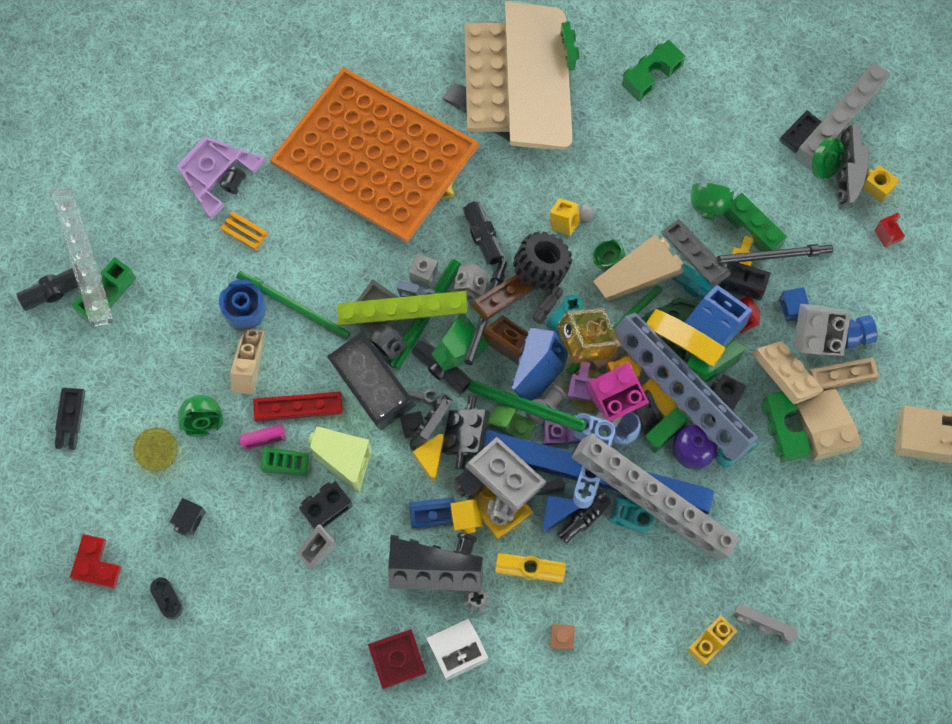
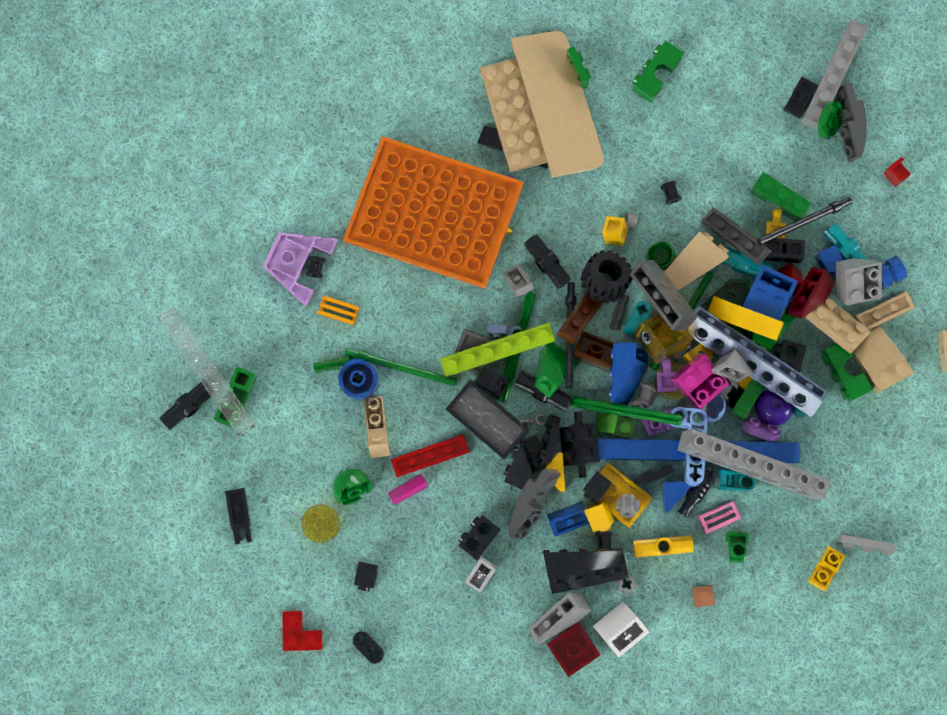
camera: 10 degrees left, 10 degrees up
(214, 283) = (330, 364): none -> green axle
(266, 468) = (435, 514): green slope -> none
(342, 455) = (481, 491): yellowish green slope -> none
(389, 483) = (527, 507): none -> dark grey slope
(393, 442) = (521, 468): none -> black slope
(393, 617) = (560, 617): none -> light grey slope
(423, 271) = (505, 309): light grey brick -> none
(445, 247) = (518, 281): none -> light grey slope
(472, 280) = (549, 309): light grey brick -> none
(505, 474) = (624, 475): light grey tile -> none
(582, 547) = (704, 523): none -> bright pink tile
(598, 290) = (663, 295): none -> flat silver brick
(616, 585) = (737, 542): none -> green plate
(636, 194) = (670, 192): none -> black bush
(657, 385) = (732, 367): none -> light grey slope
(668, 462) = (759, 429): none -> medium lavender plate
(711, 200) = (737, 184): green cylinder -> none
(766, 330) = (811, 293): none -> dark red slope
(816, 293) = (846, 246): none -> teal piece
(878, 191) = (886, 127): yellow brick -> none

